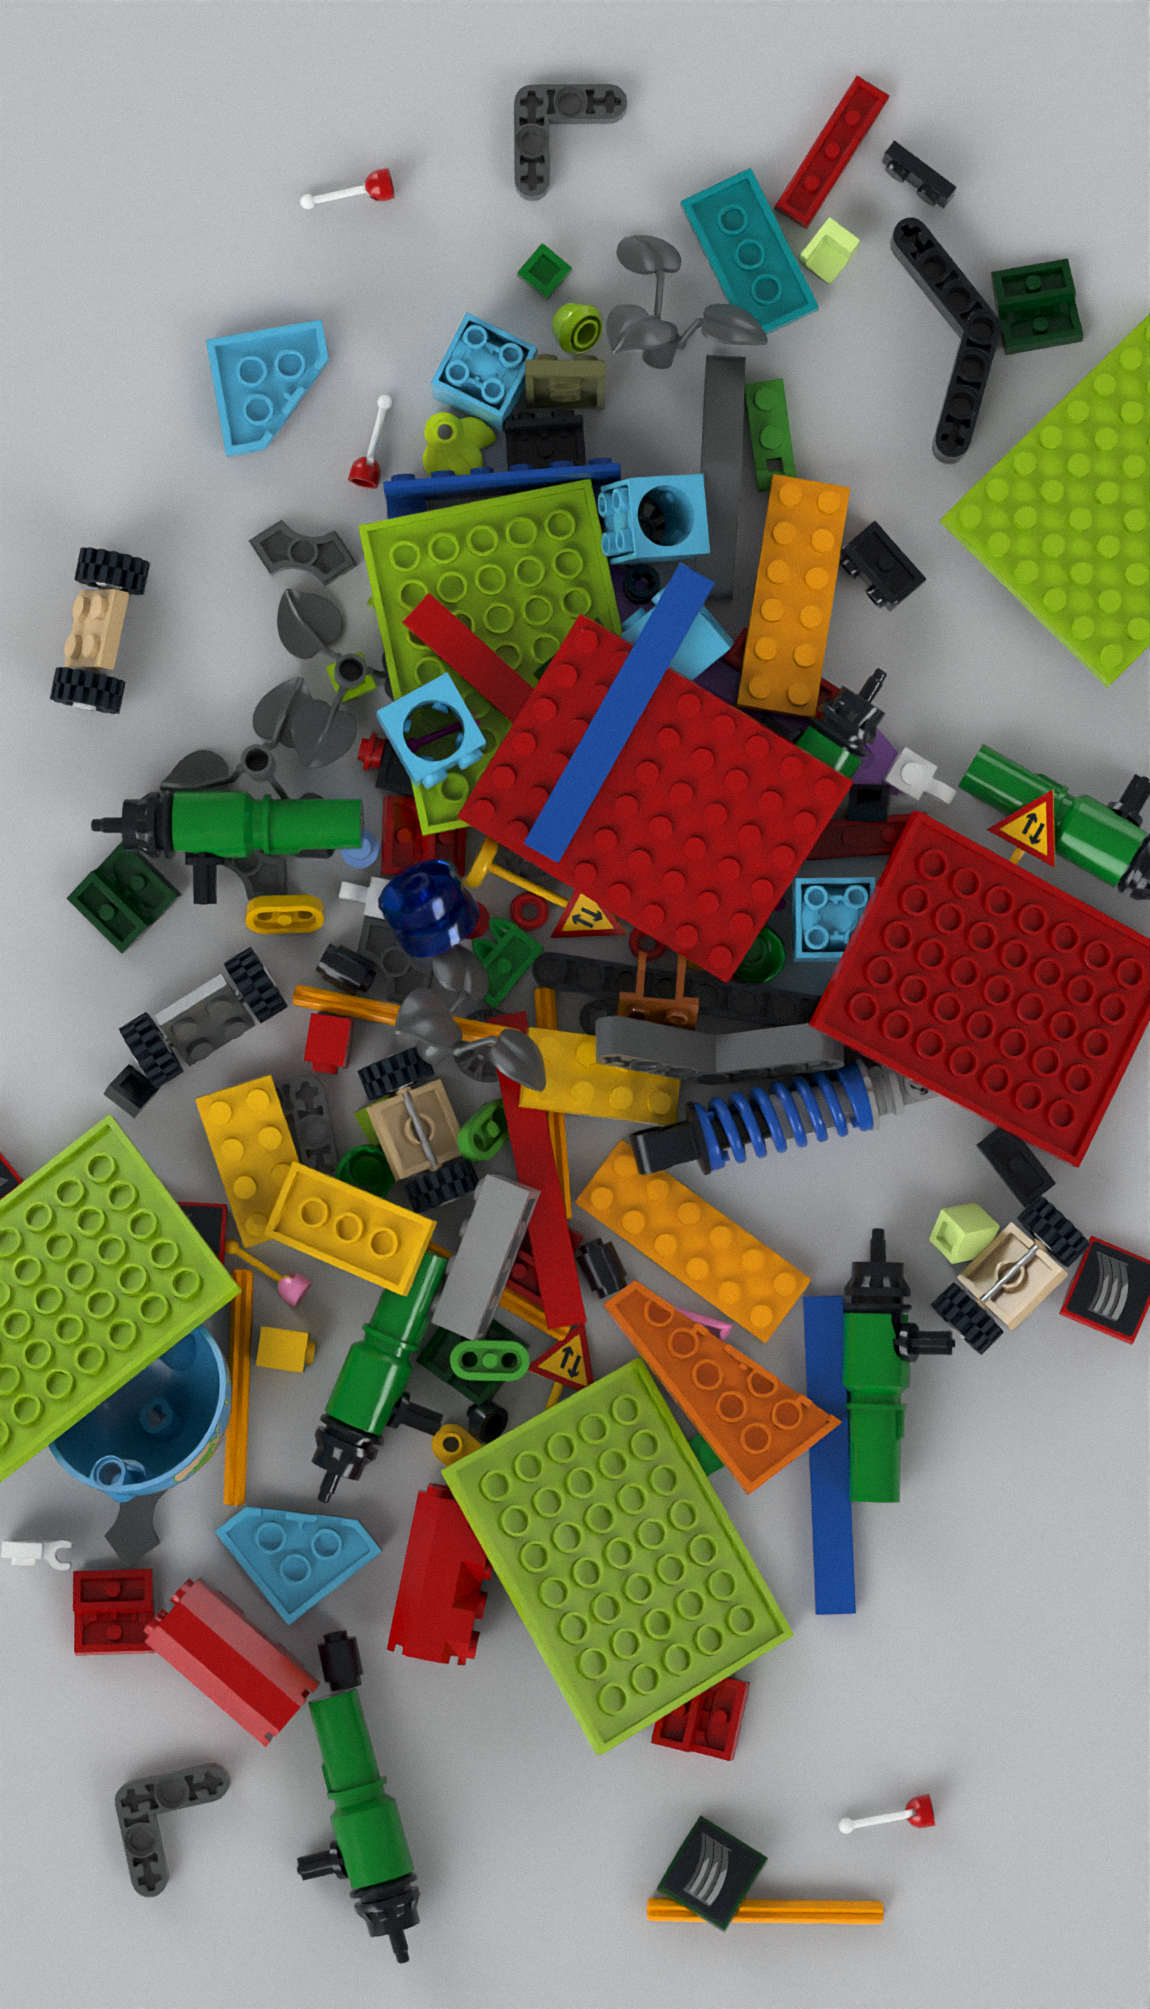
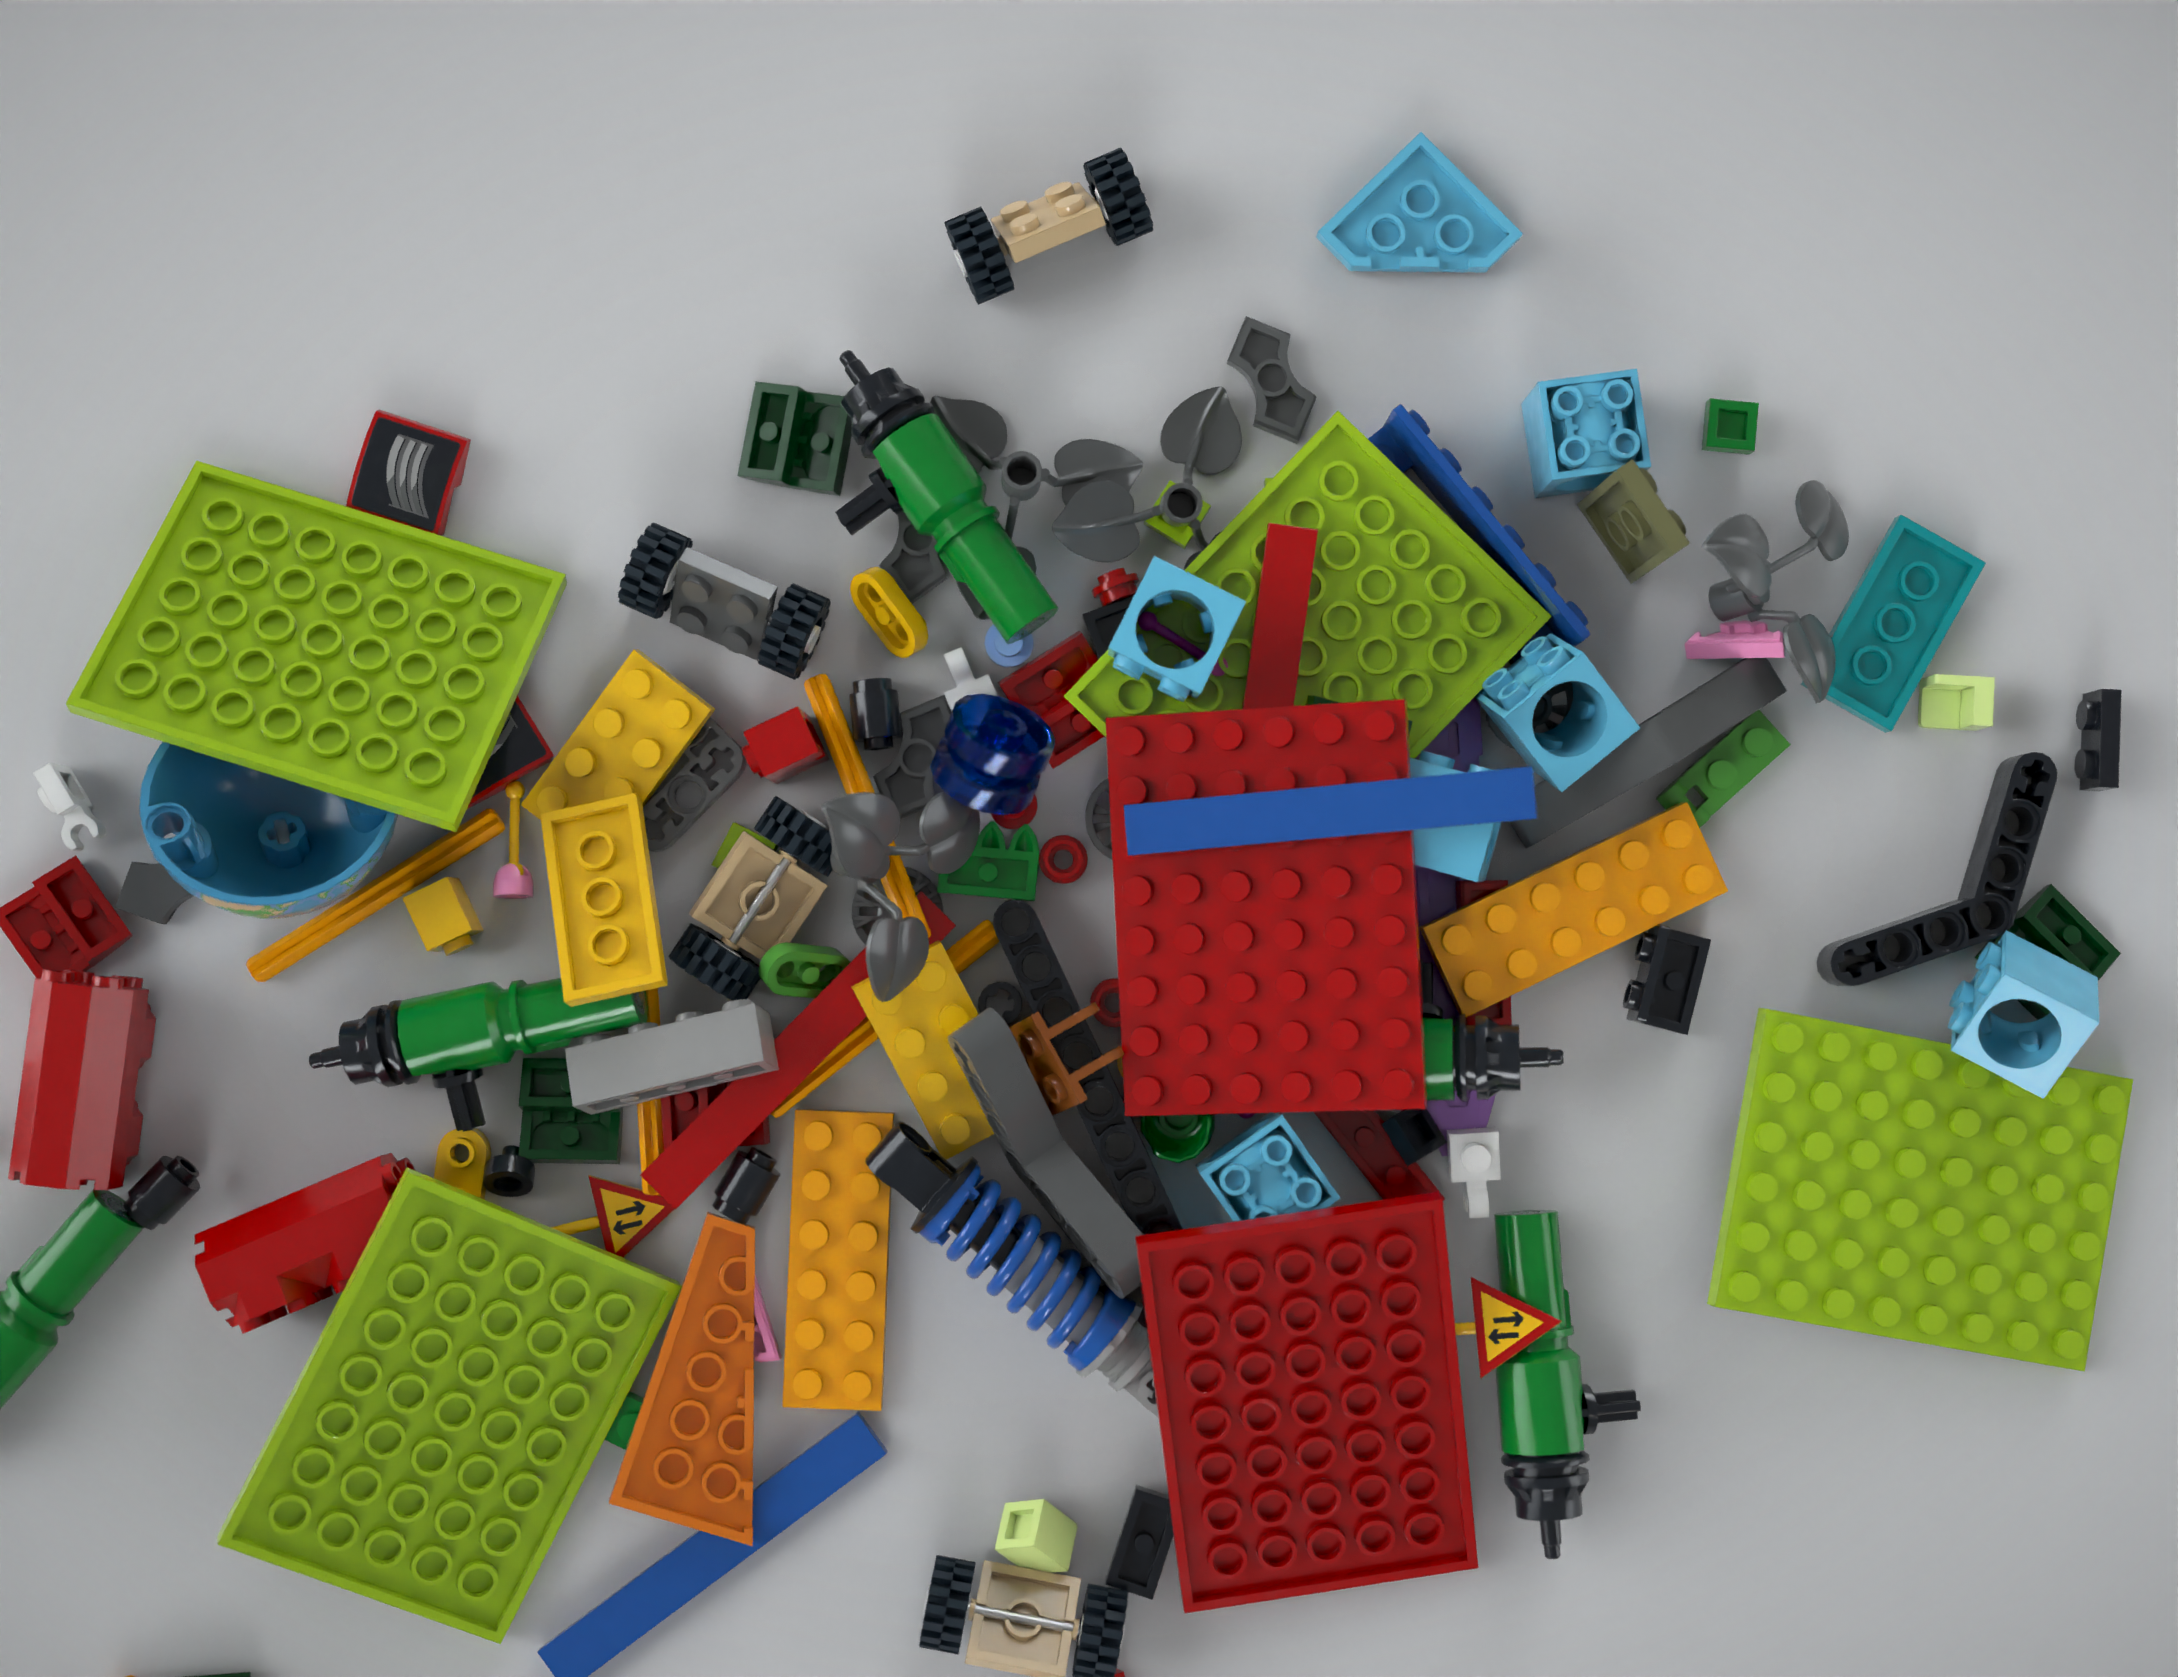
camera: 60 degrees right, 0 degrees up
(131, 1091) = (600, 579): black plate -> none
(297, 1554) = (243, 1071): medium azure plate -> none
(366, 470) = (1399, 384): hinge -> none
(367, 1169) = (679, 874): green hair -> none
(377, 186) = (1698, 198): hinge -> none
(461, 449) = (1491, 465): neon yellow plate -> none
(488, 1362) = (565, 1137): bright green plate -> none
(545, 439) = (1560, 542): black bracket -> none
(551, 113) = (1895, 322): dark grey beam -> none
(577, 327) = (1698, 497): lime cone -> none
(581, 915) = (1094, 913): yellow piece -> none
(637, 573) = (1486, 732): black bush -> none
(689, 368) = (1737, 640): none -> bright pink tile
(707, 1722) = (351, 1622): red slope -> none
(831, 152) = (2058, 635): red tile -> none
(877, 1370) = (830, 1545): green piece -> none
(1079, 375) = (2028, 1052): none -> medium azure brick

